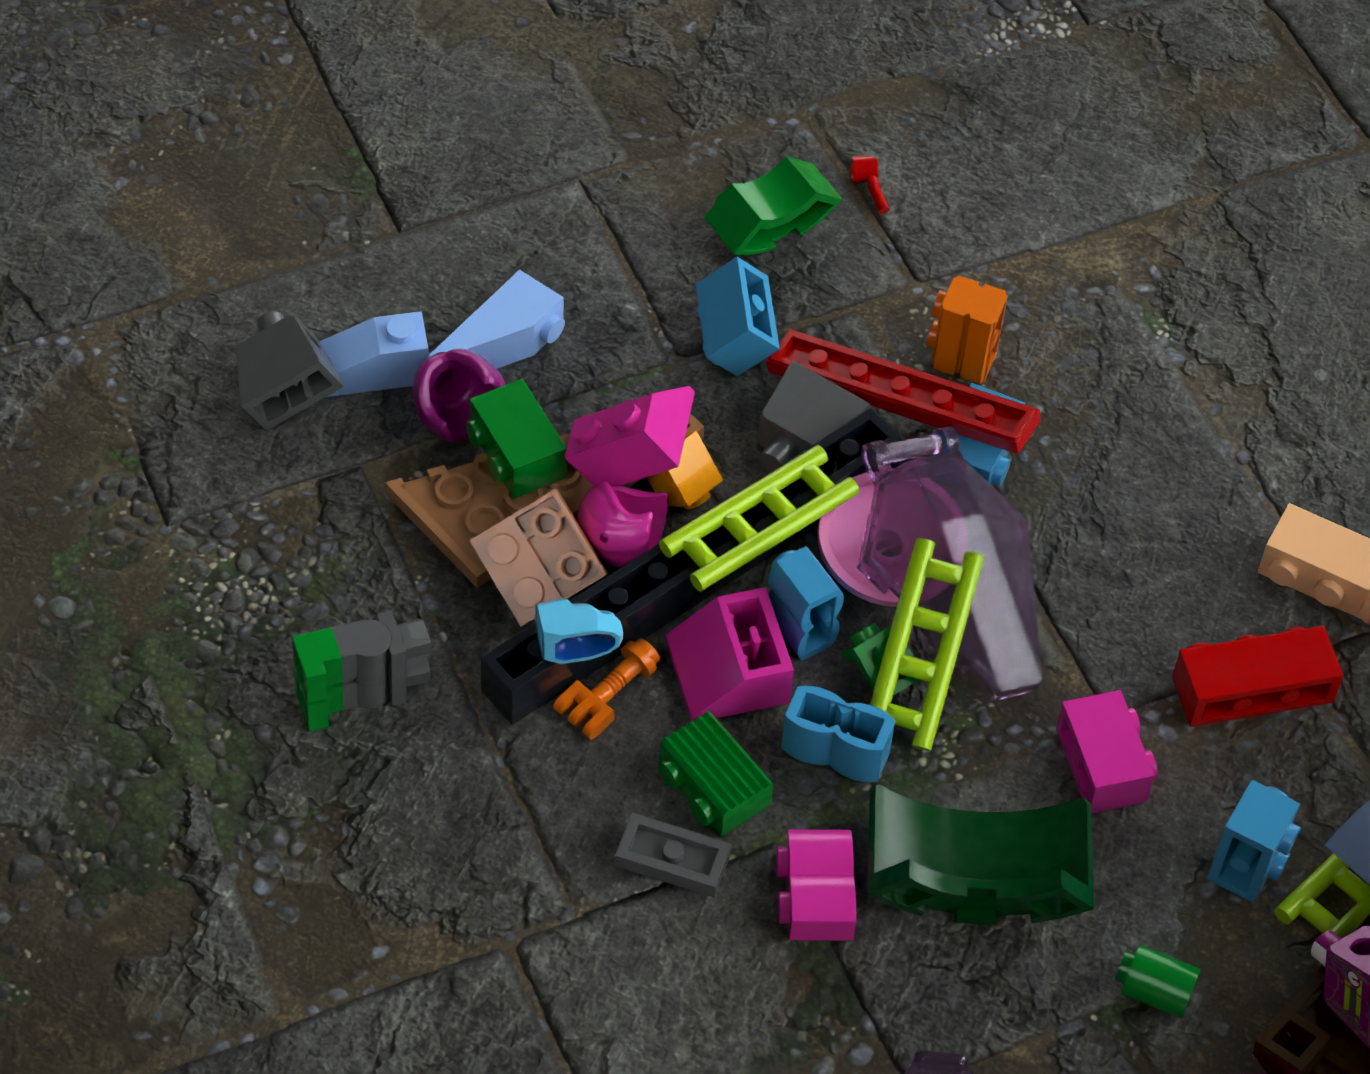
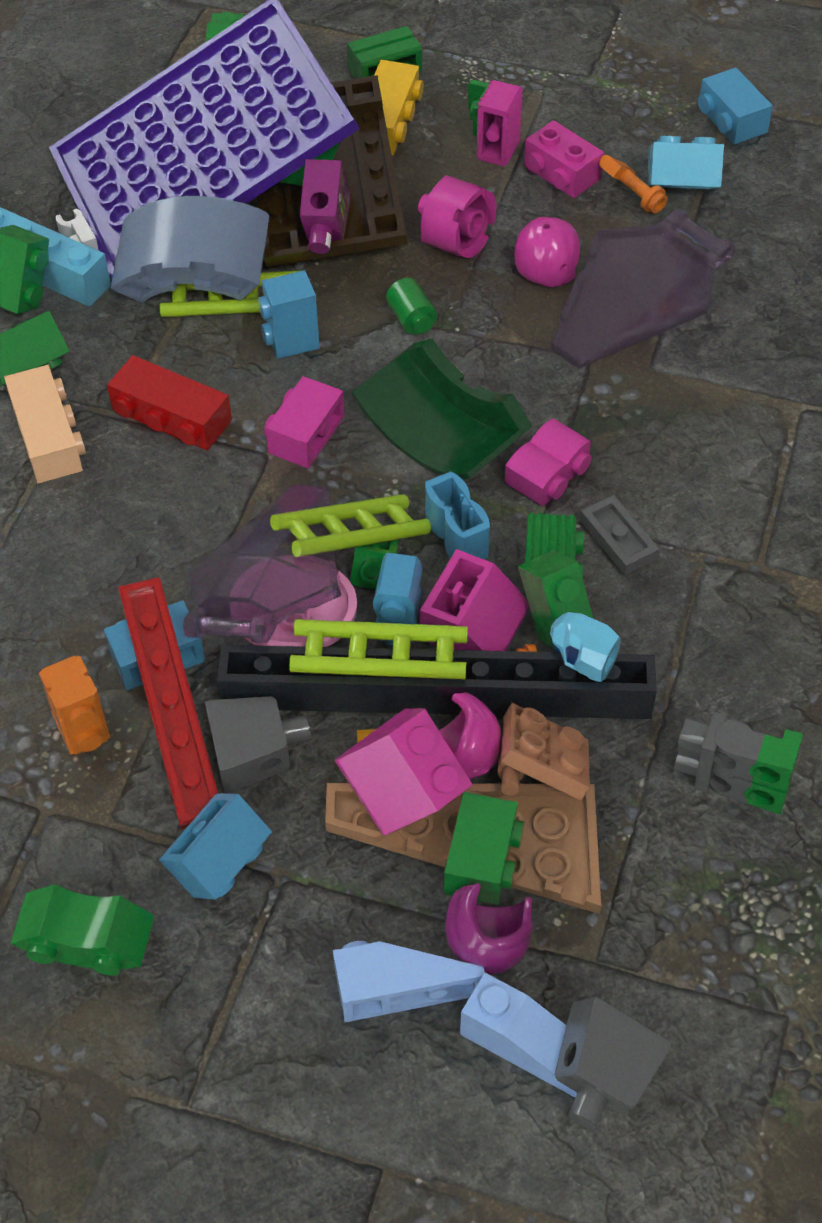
camera: 135 degrees left, 0 degrees up
(652, 695) = (553, 588): none -> green brick

